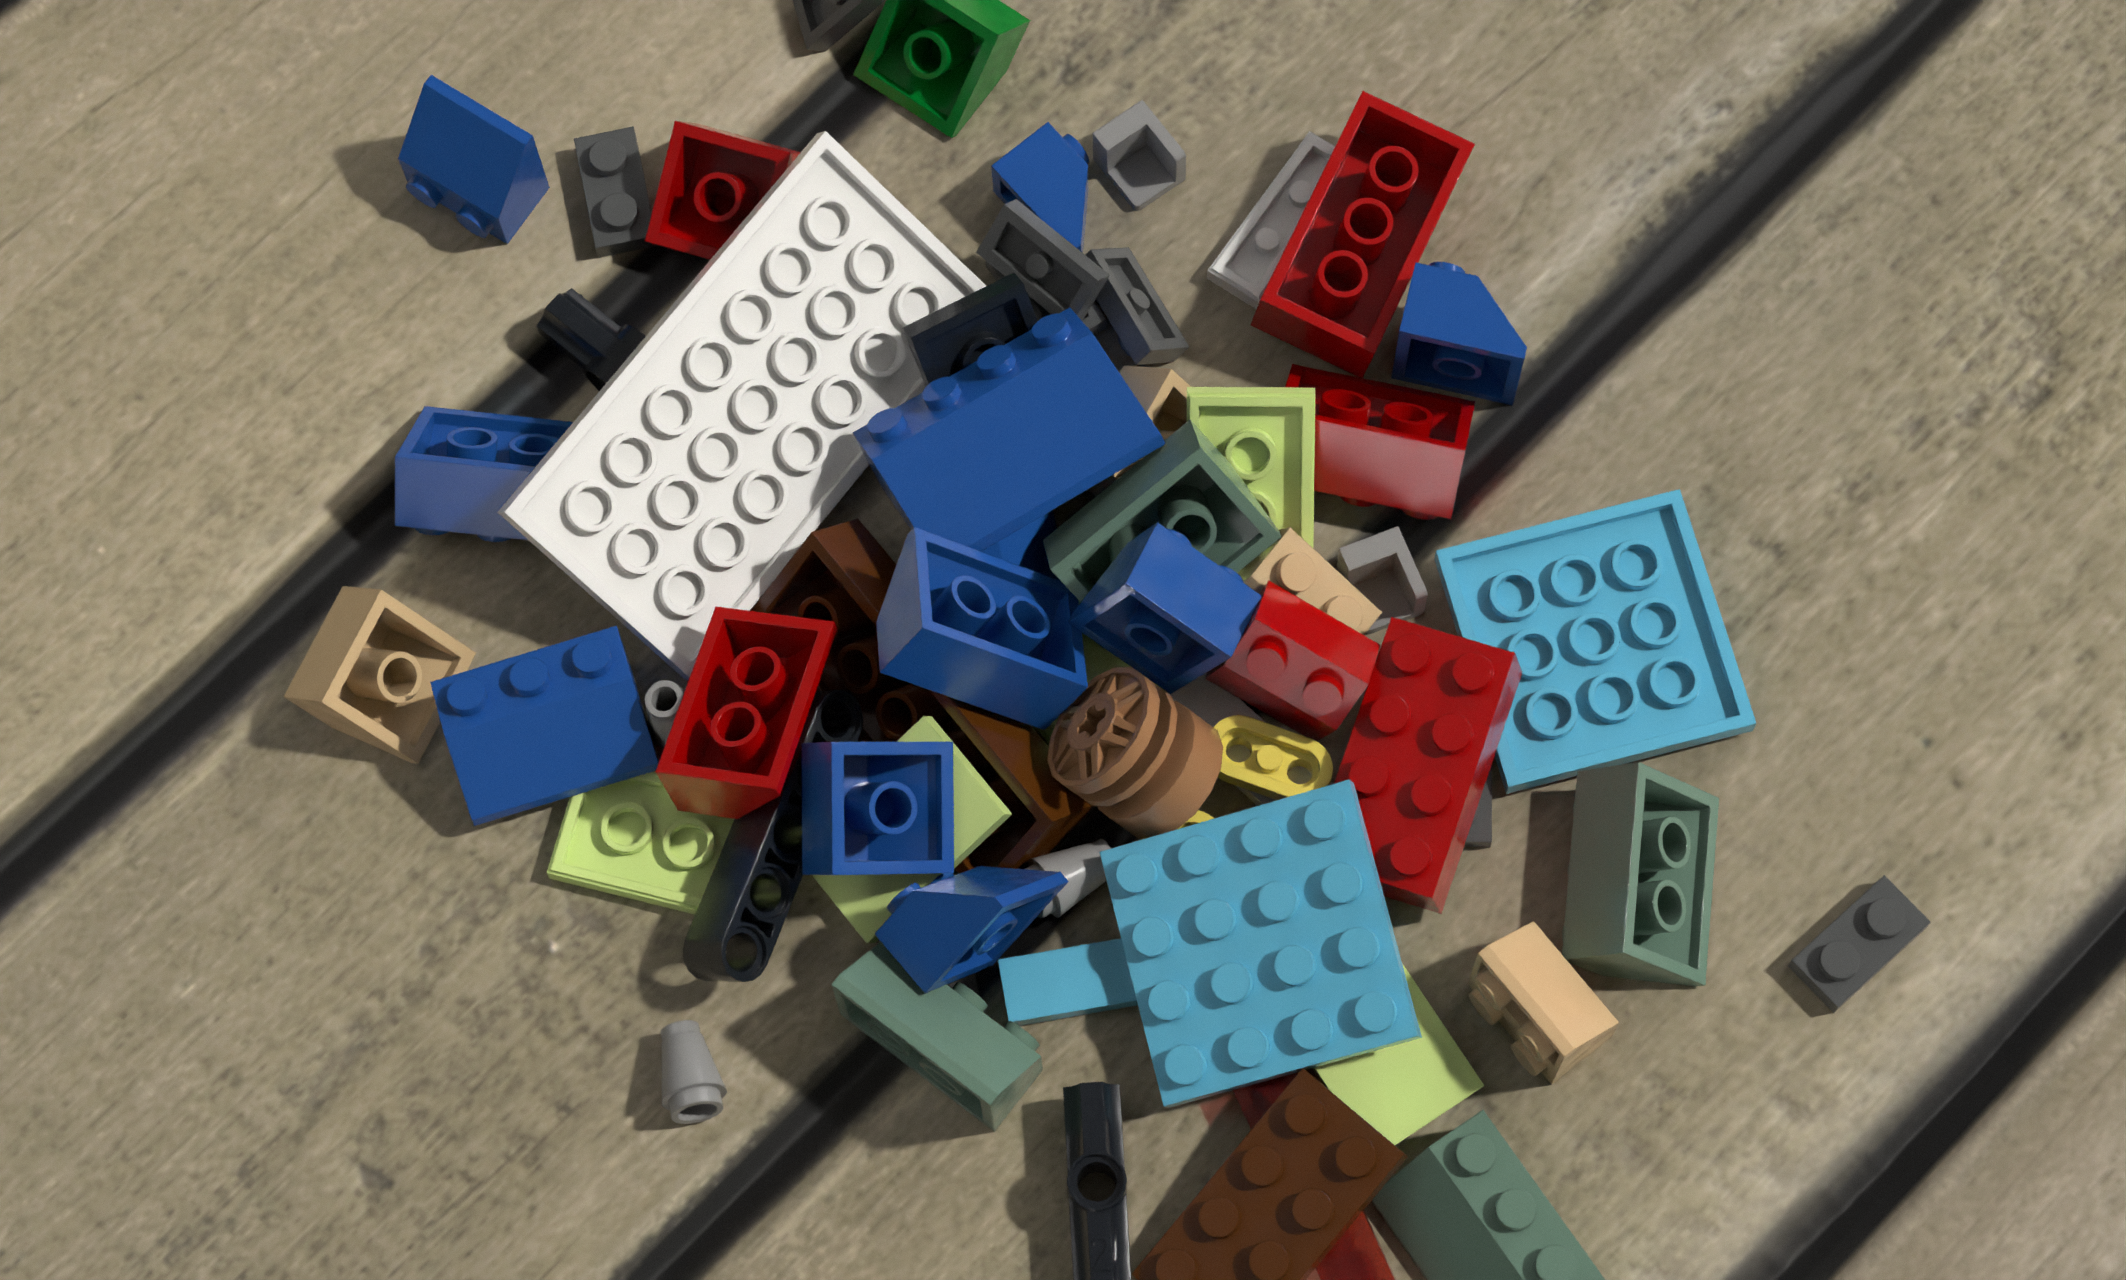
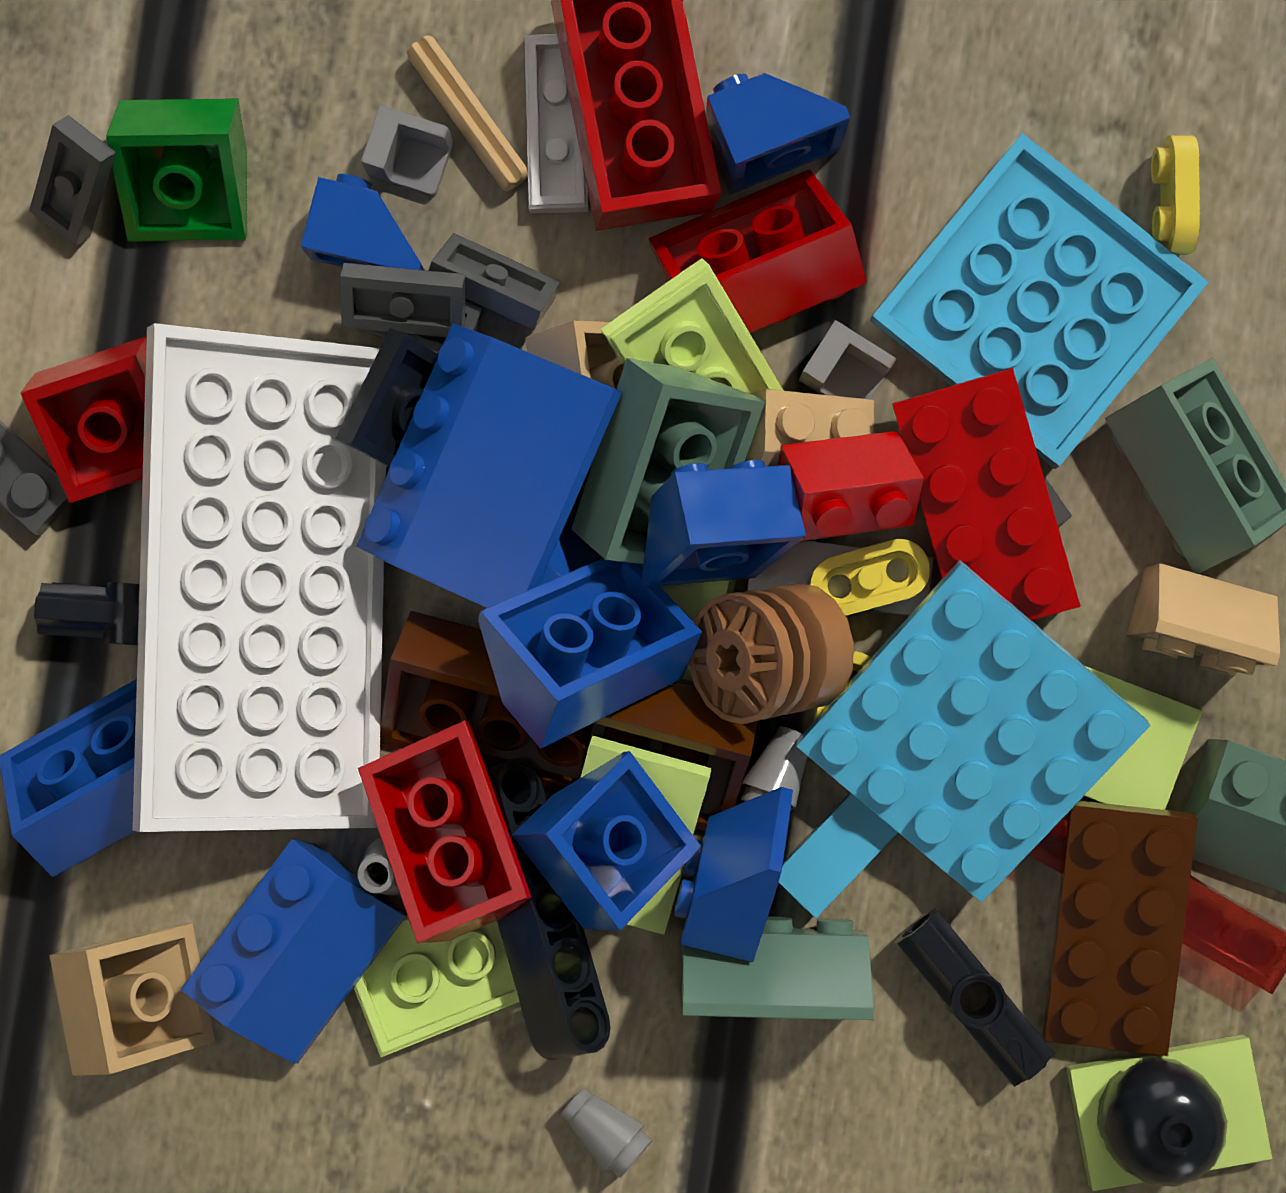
camera: 35 degrees left, 15 degrees up
(1214, 162) = (467, 113): none -> tan axle
(1795, 612) = (1178, 216): none -> light yellow plate

